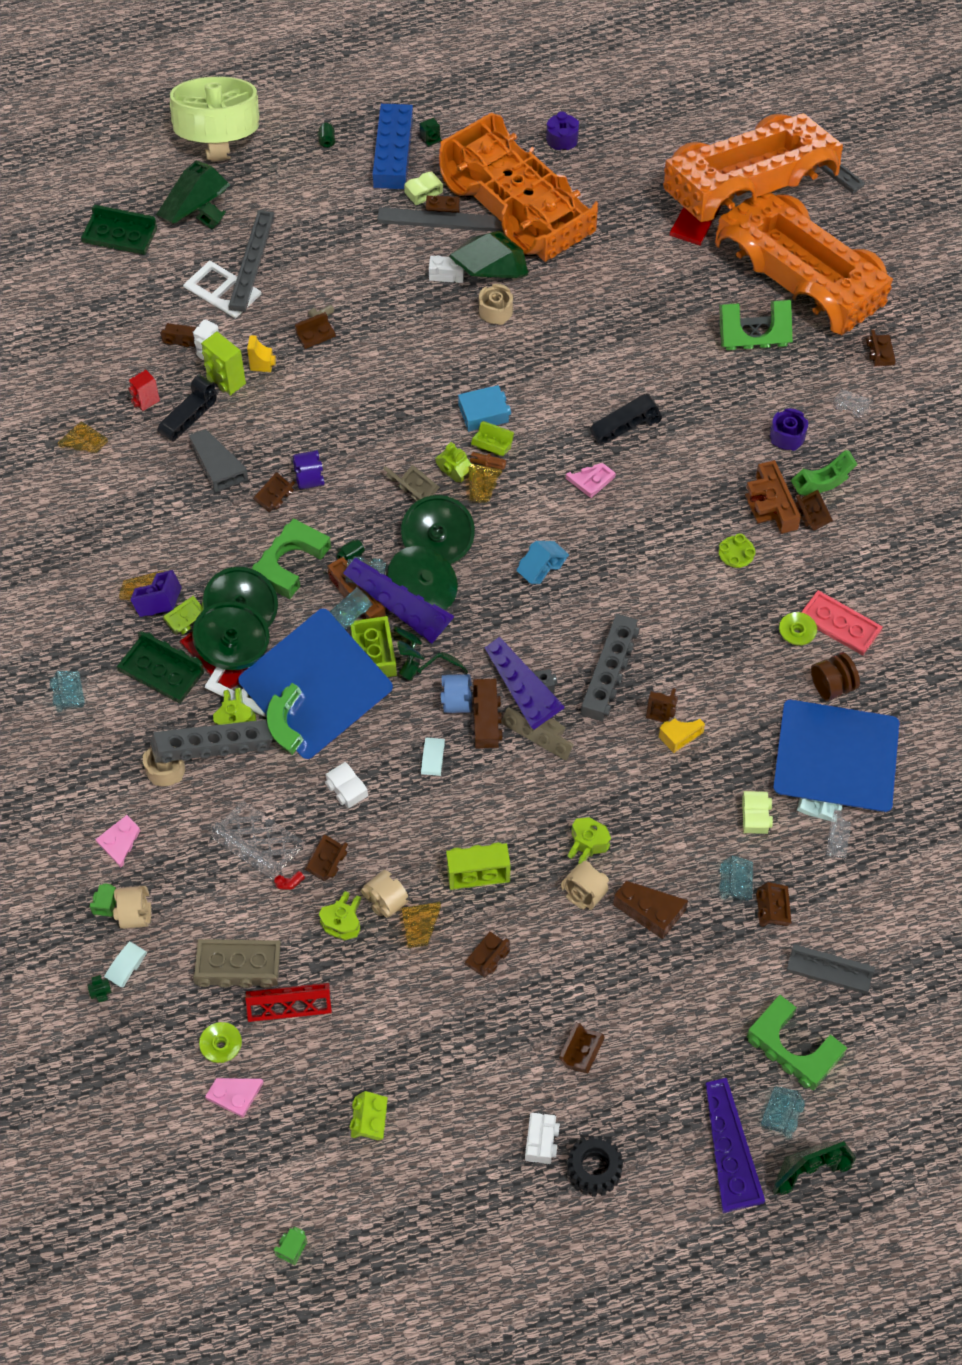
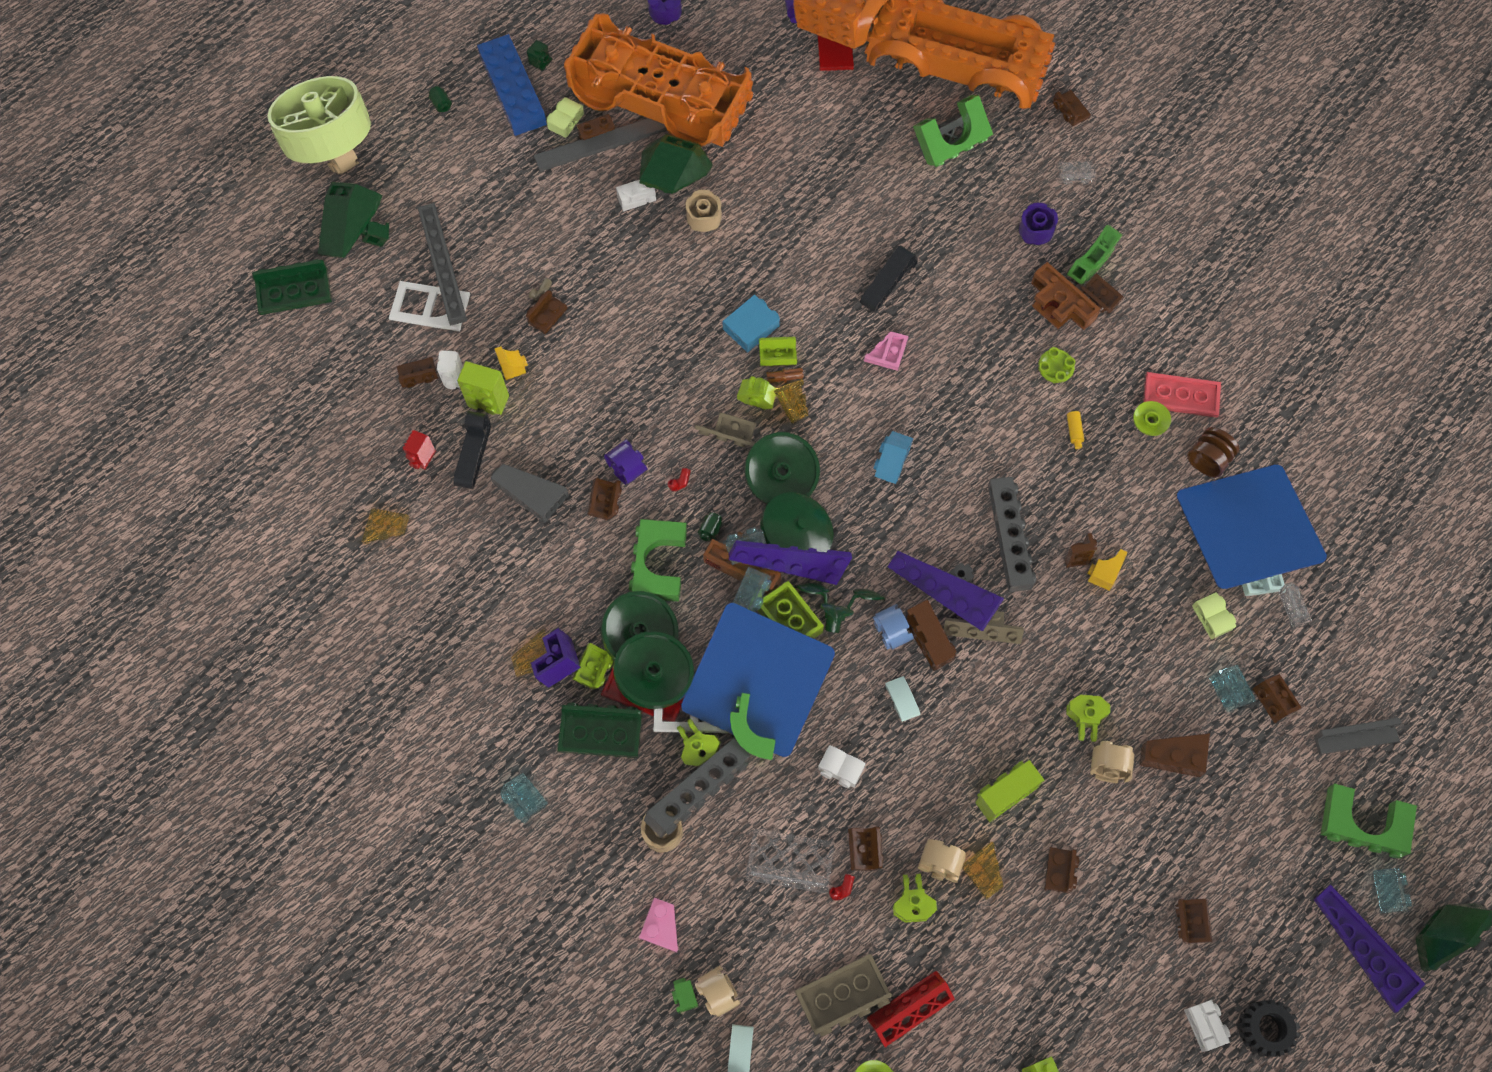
camera: 25 degrees left, 10 degrees up
(343, 508) = (678, 484): none -> red arm
(722, 609) = (1075, 429): none -> yellow cylinder

